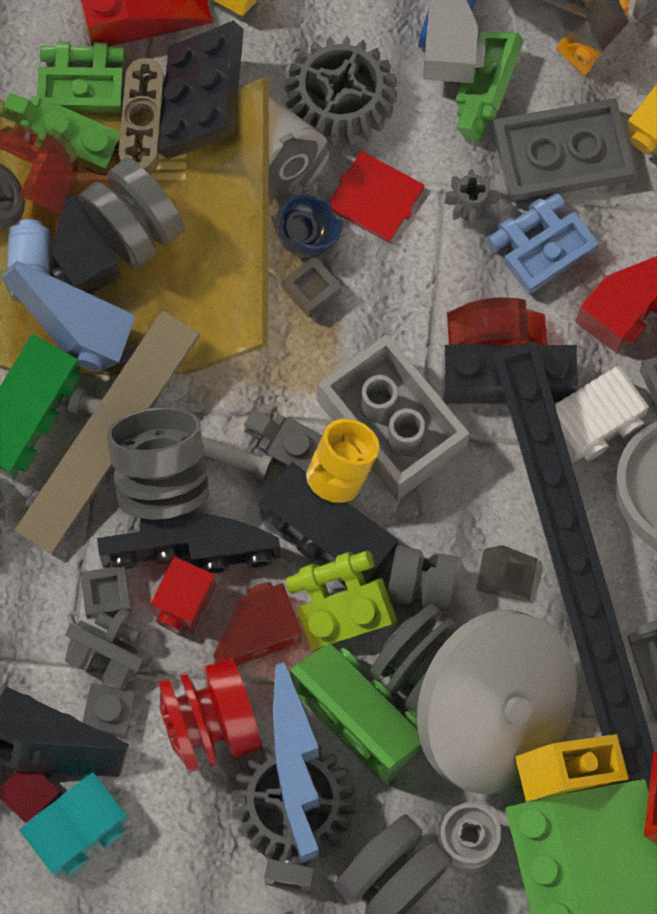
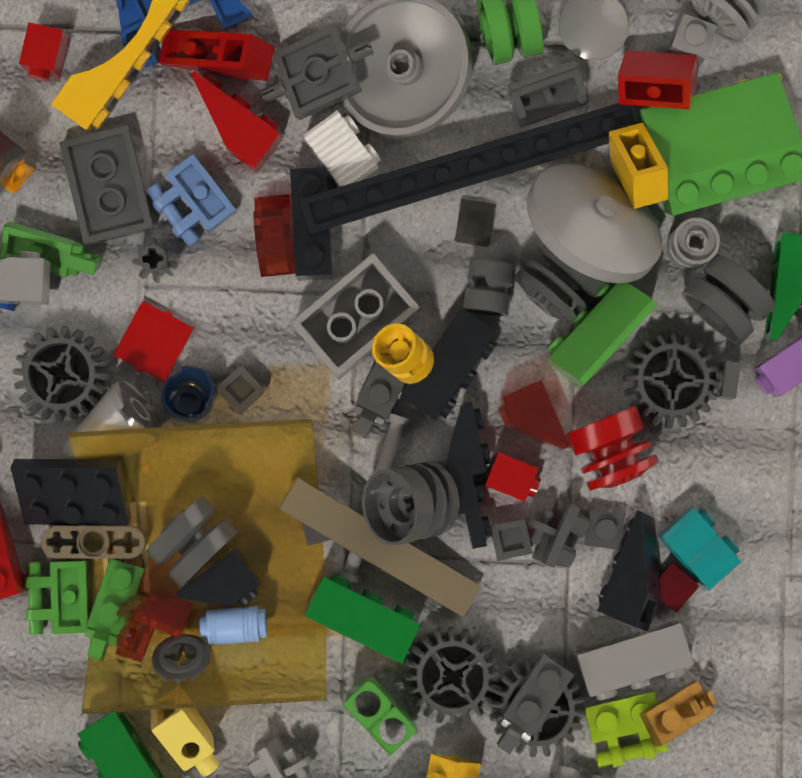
camera: 85 degrees left, 15 degrees up
(75, 319) = (289, 581): medium blue slope -> none
(294, 747) = (640, 381): medium blue slope -> none
(345, 613) = (521, 348): lime plate -> none

